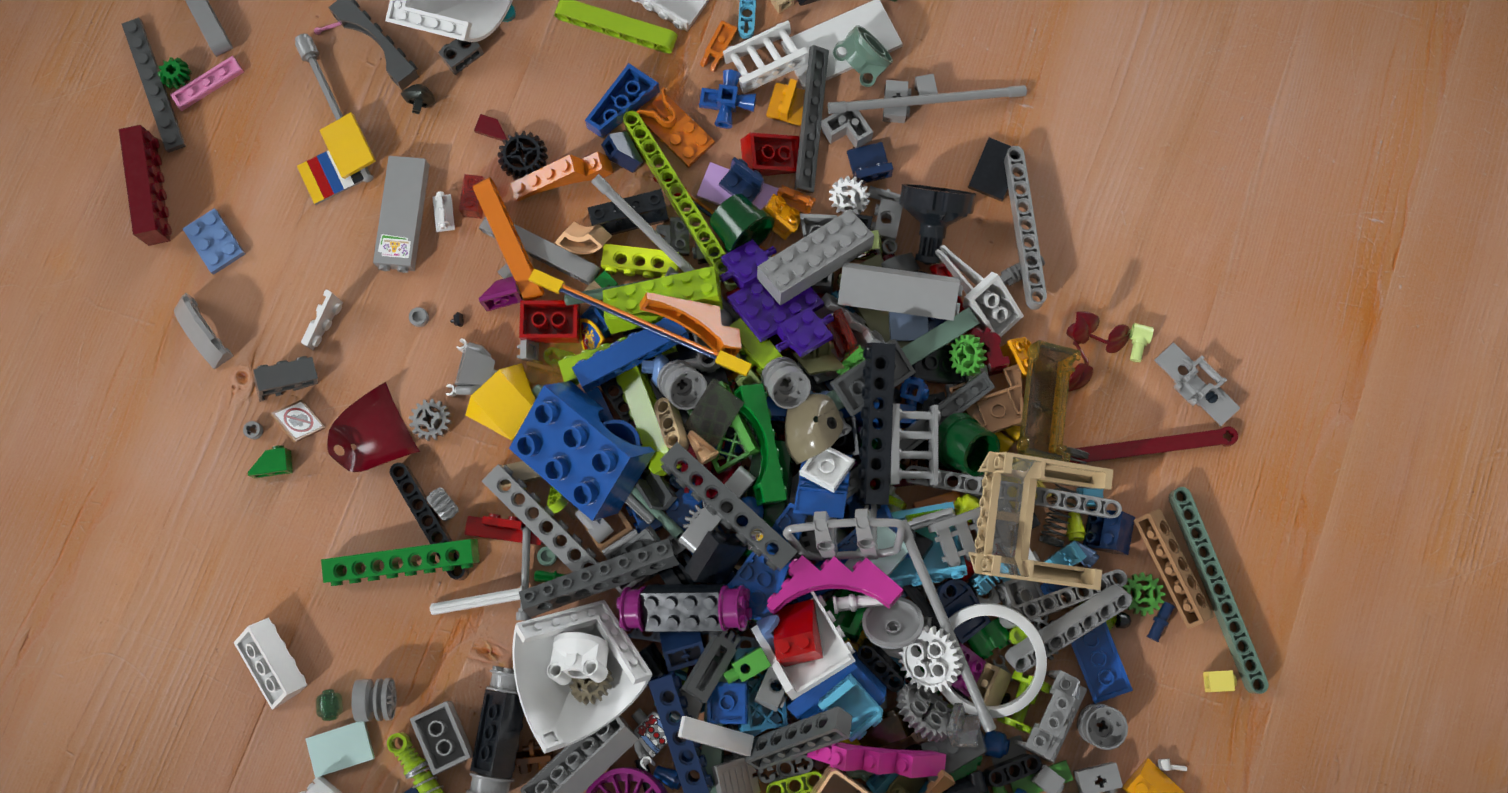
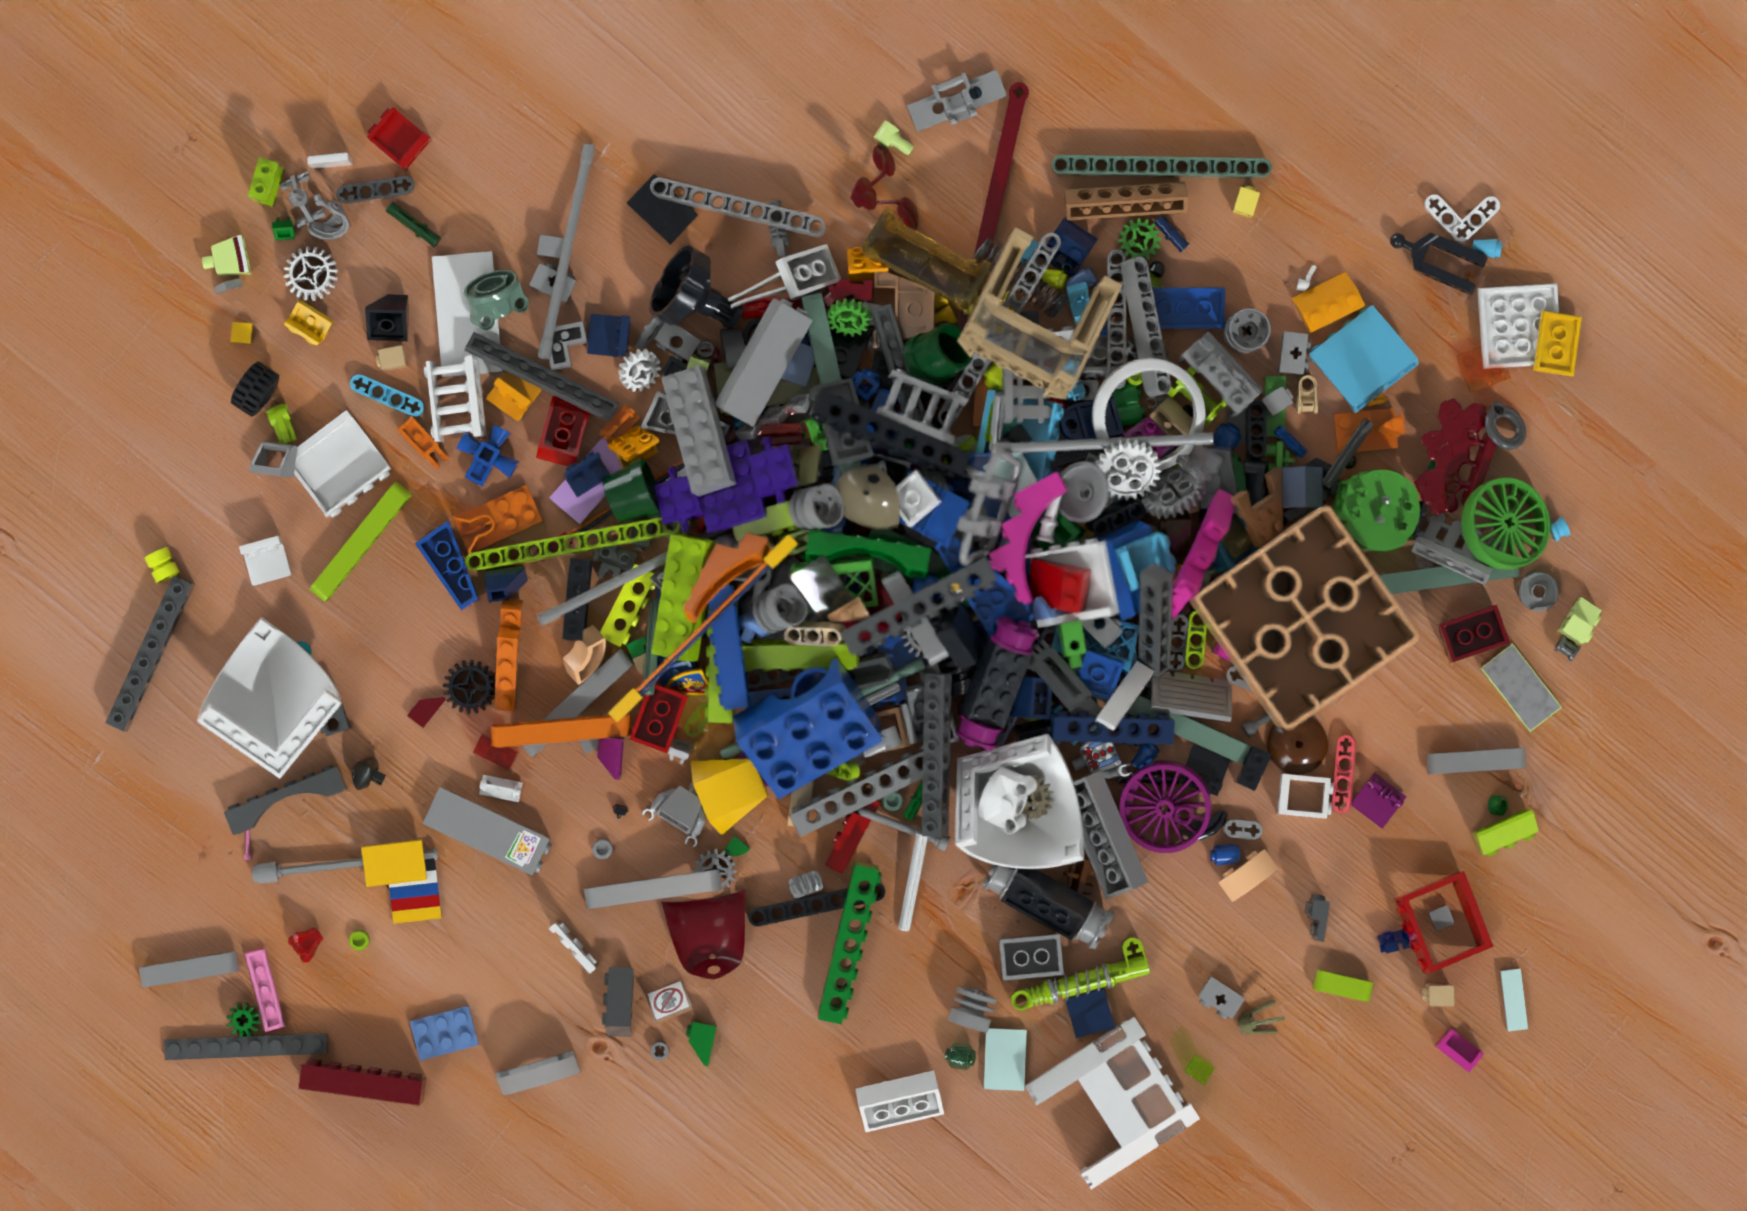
camera: 75 degrees left, 10 degrees up
(254, 100) = (305, 943): none -> red rock
(273, 143) = (359, 940): none -> lime tile
(394, 370) = (652, 889): none -> light grey beam
(458, 432) = (736, 847): none -> green tile

